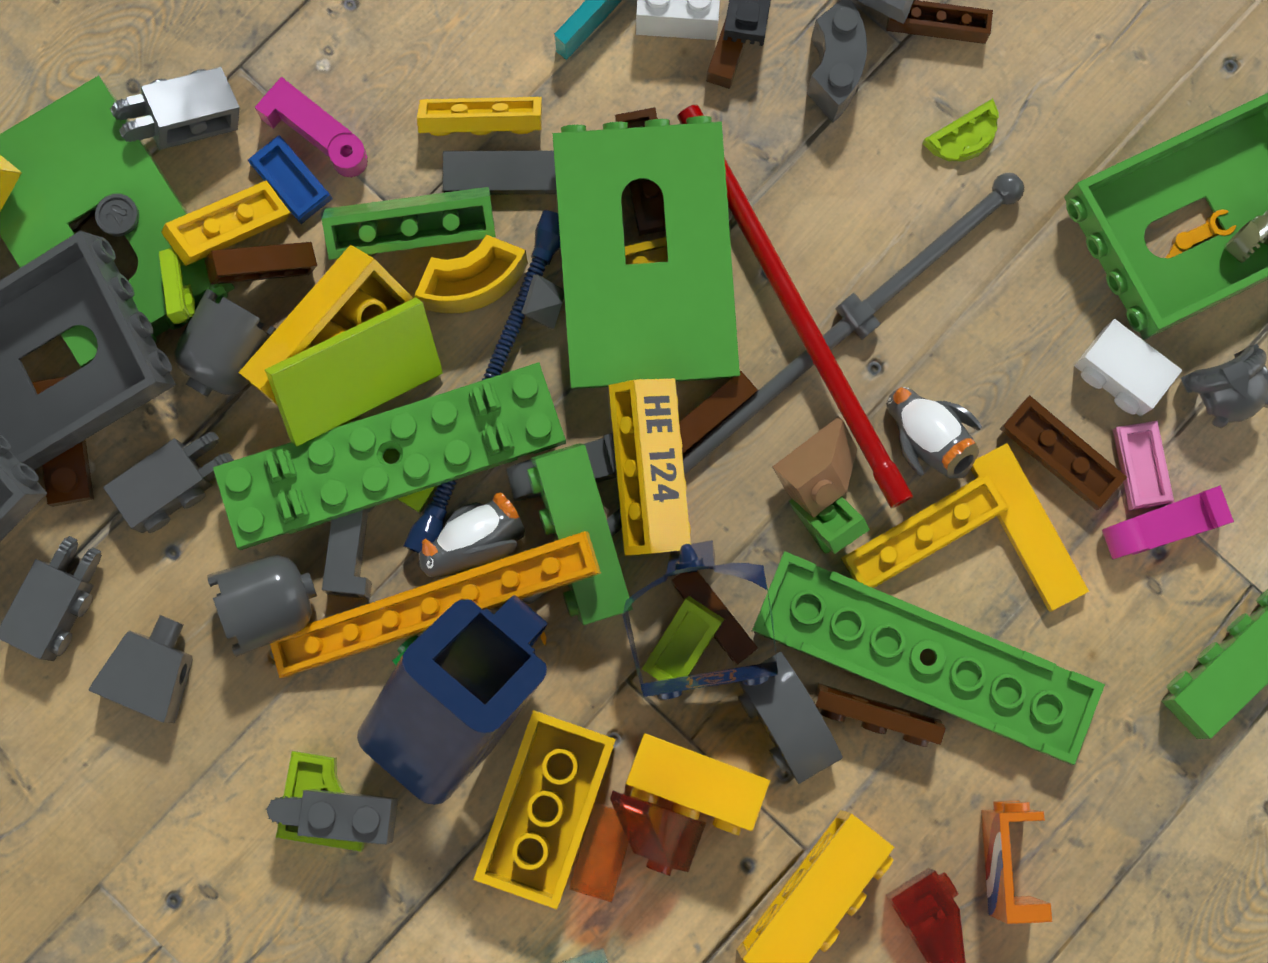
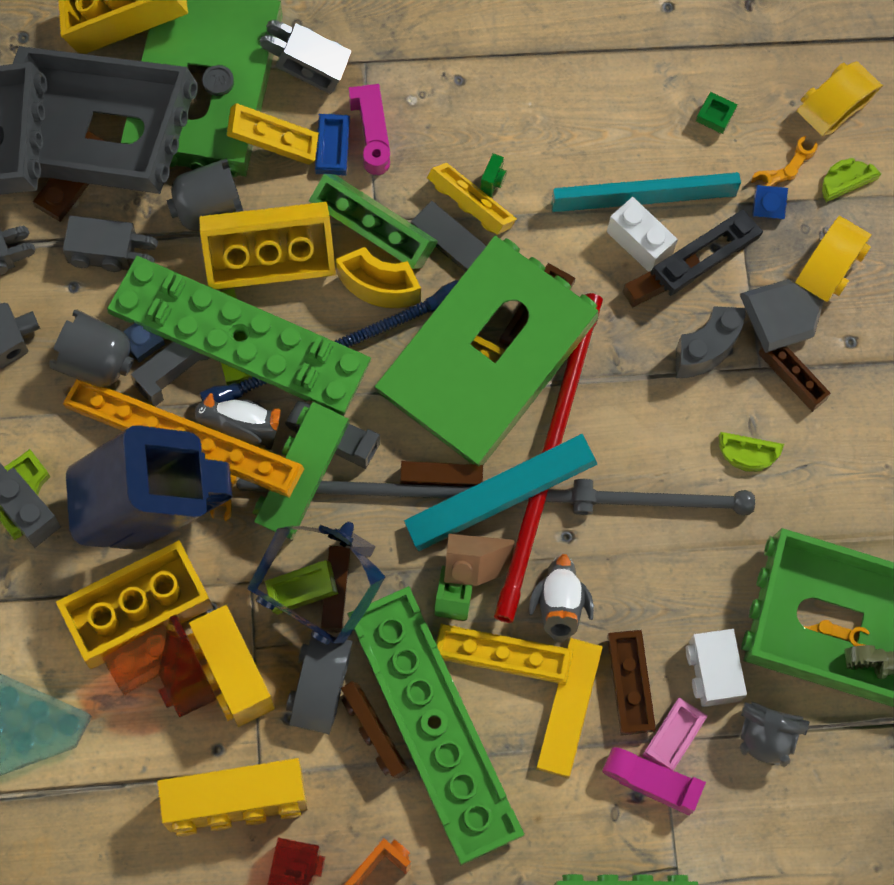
camera: 40 degrees right, 10 degrees down
(178, 298) = (204, 149): lime tile -> none
(260, 262) = (270, 172): reddish brown piece -> none
(296, 546) = (142, 342): none -> light blue plate
(354, 371) = (263, 271): lime tile -> none
(480, 72) = (493, 175): none -> green plate
(543, 301) = (406, 328): dark grey slope -> none
(649, 466) = (376, 467): yellow brick -> none
(785, 382) = (500, 492): none -> teal tile

